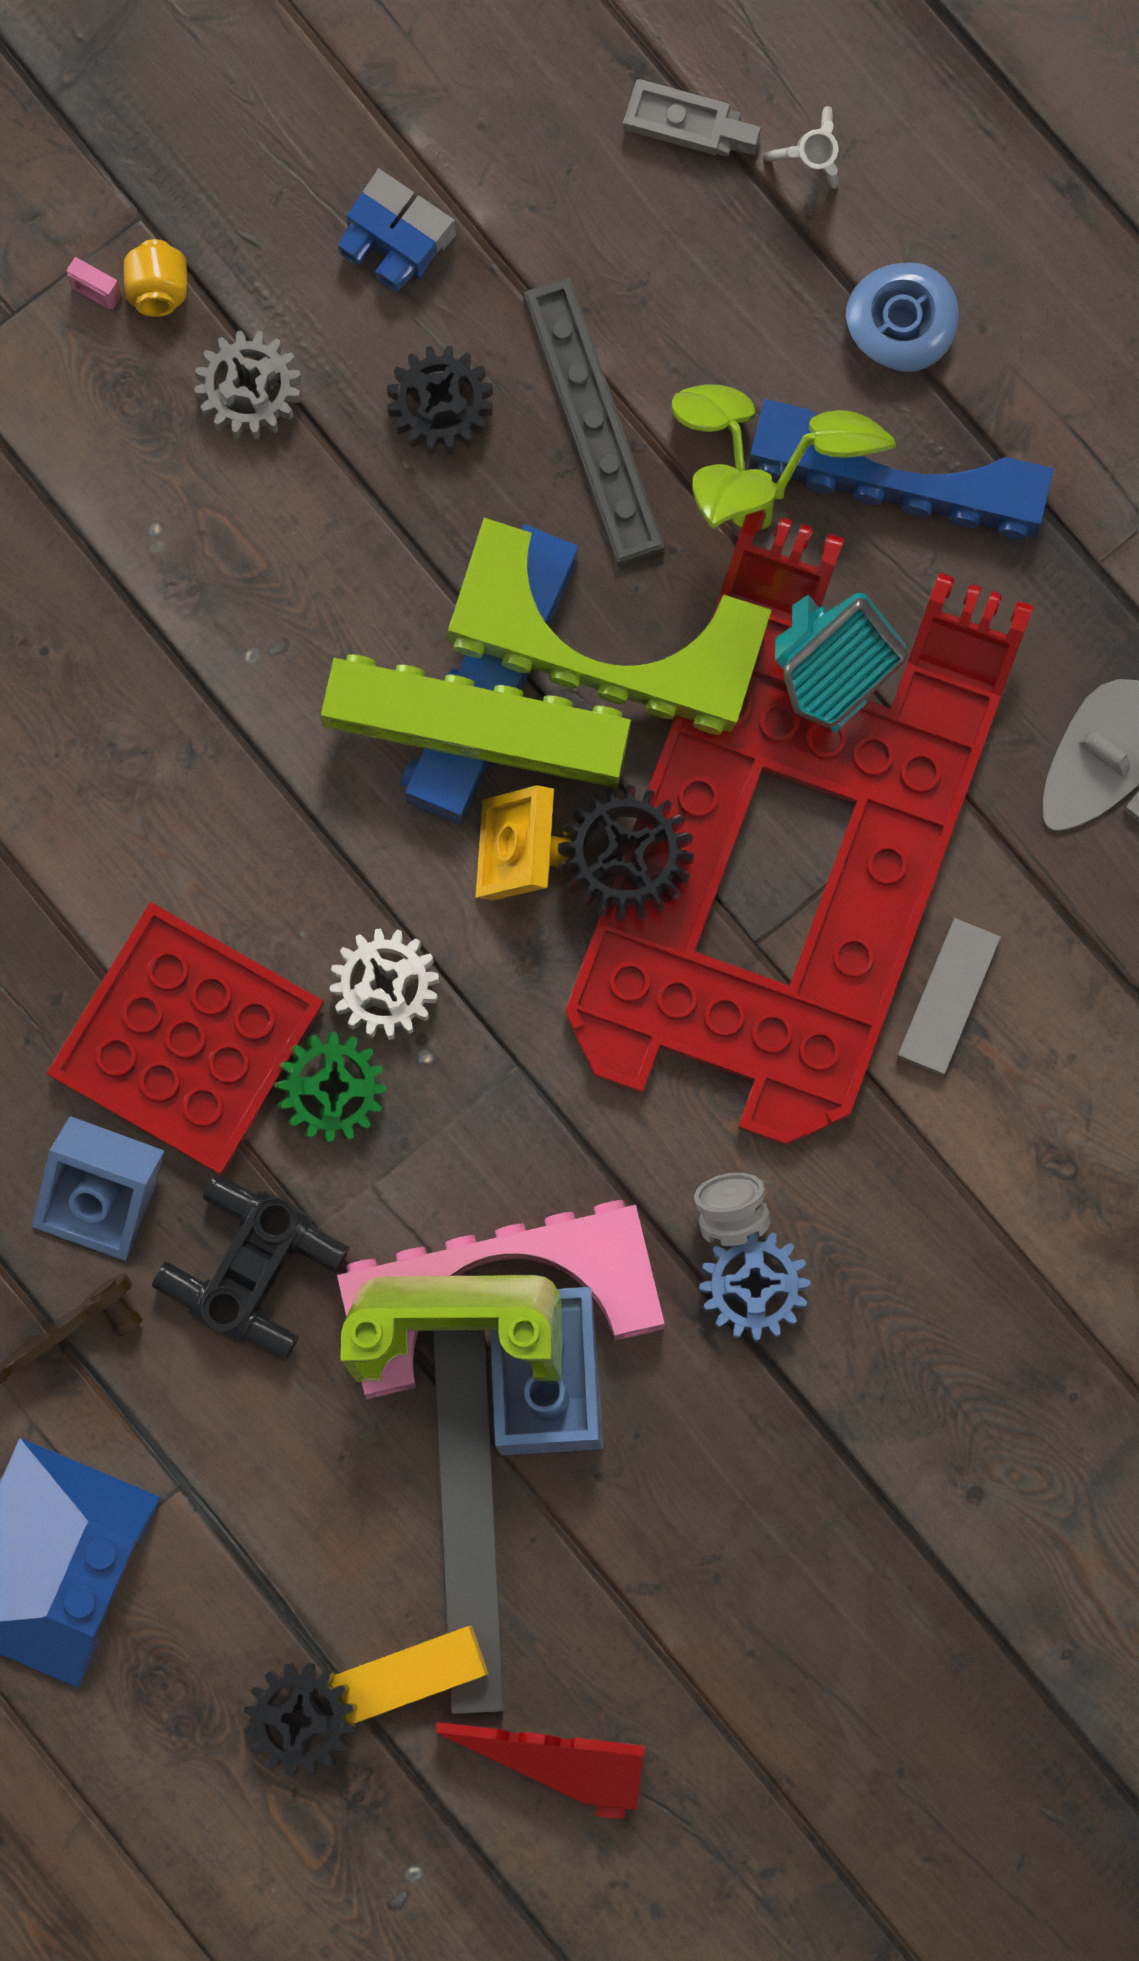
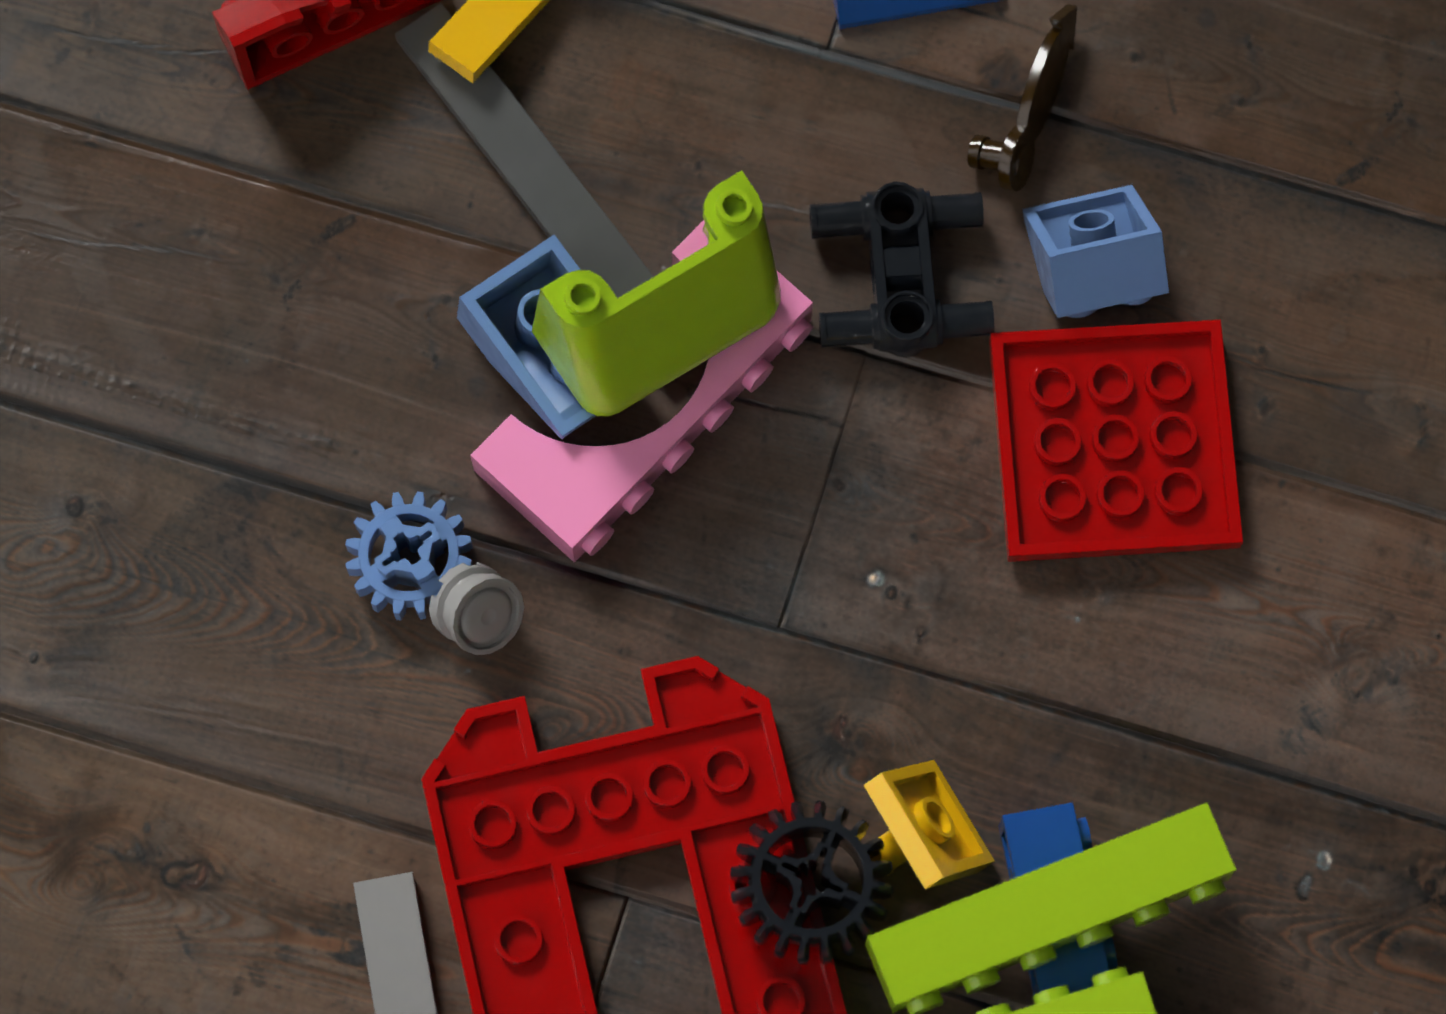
camera: 145 degrees right, 5 degrees down
(330, 1111) = (923, 491): green gear -> none
(405, 973) = (982, 622): white gear -> none

